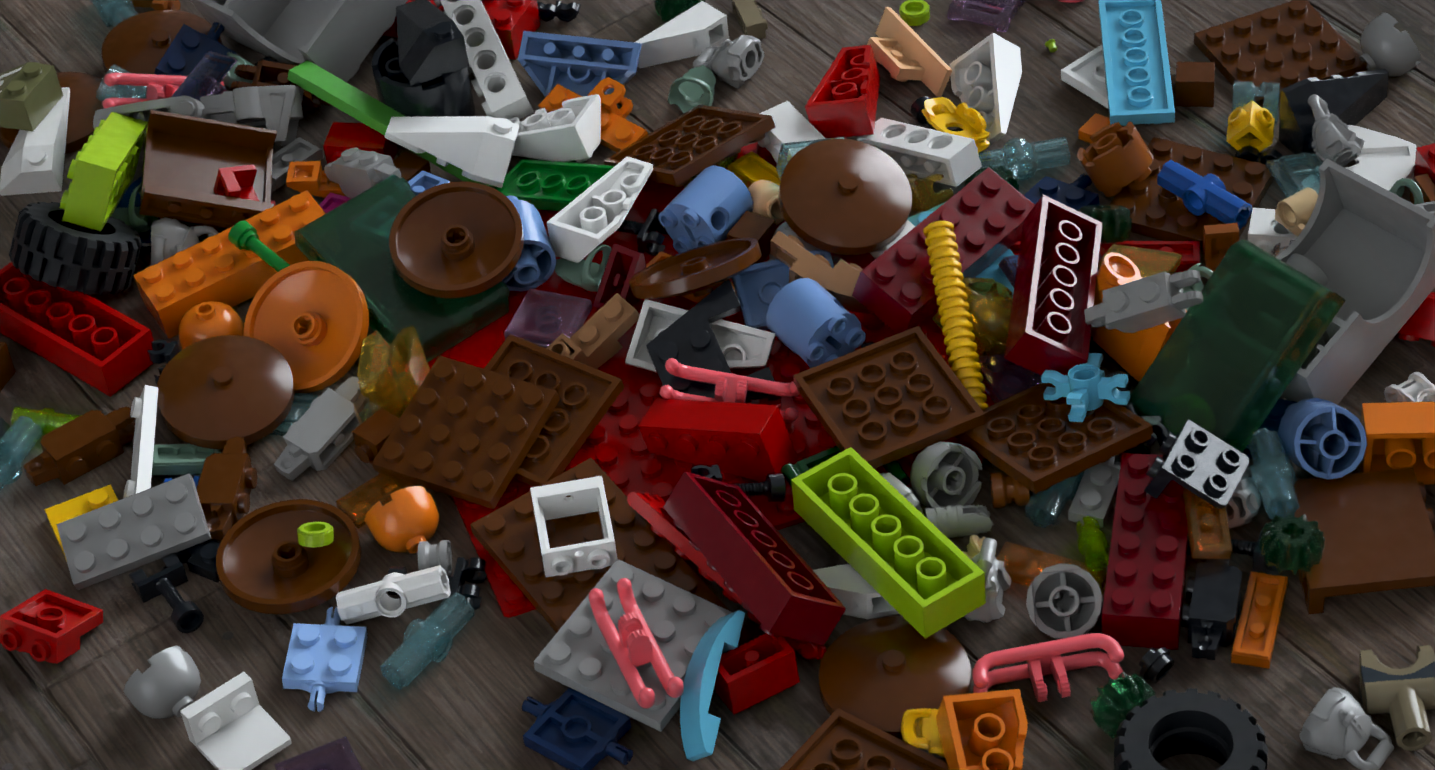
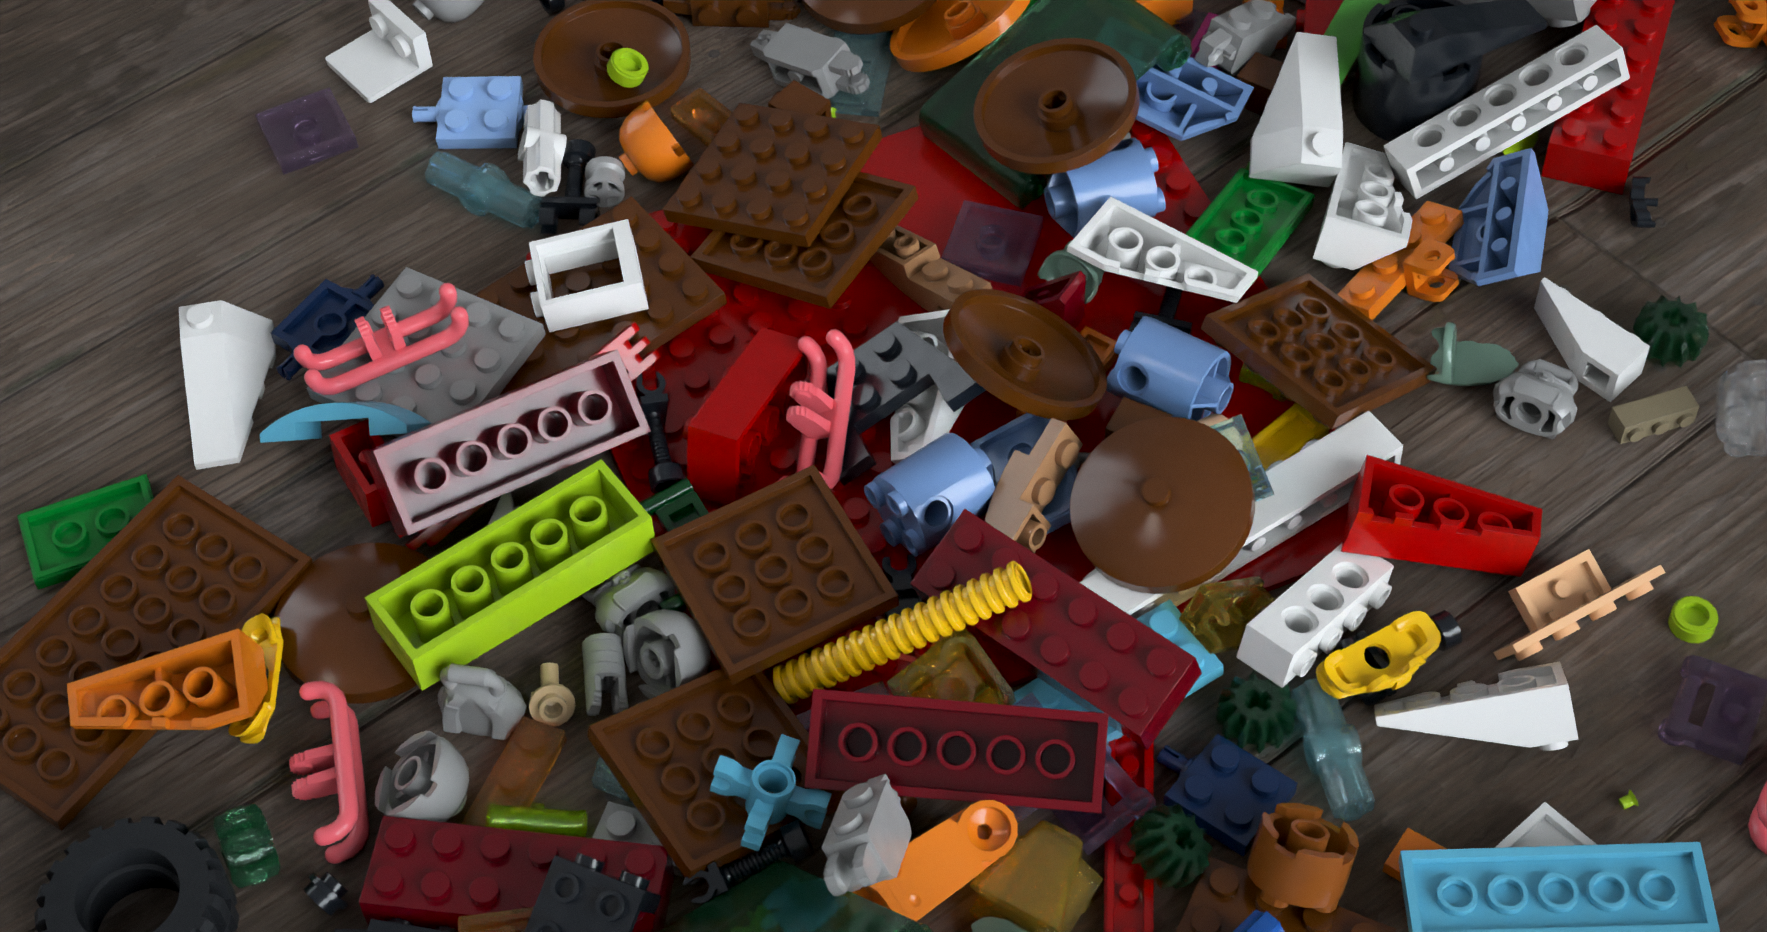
camera: 85 degrees right, 10 degrees up
(391, 372) = (877, 92): clear yellow piece -> none

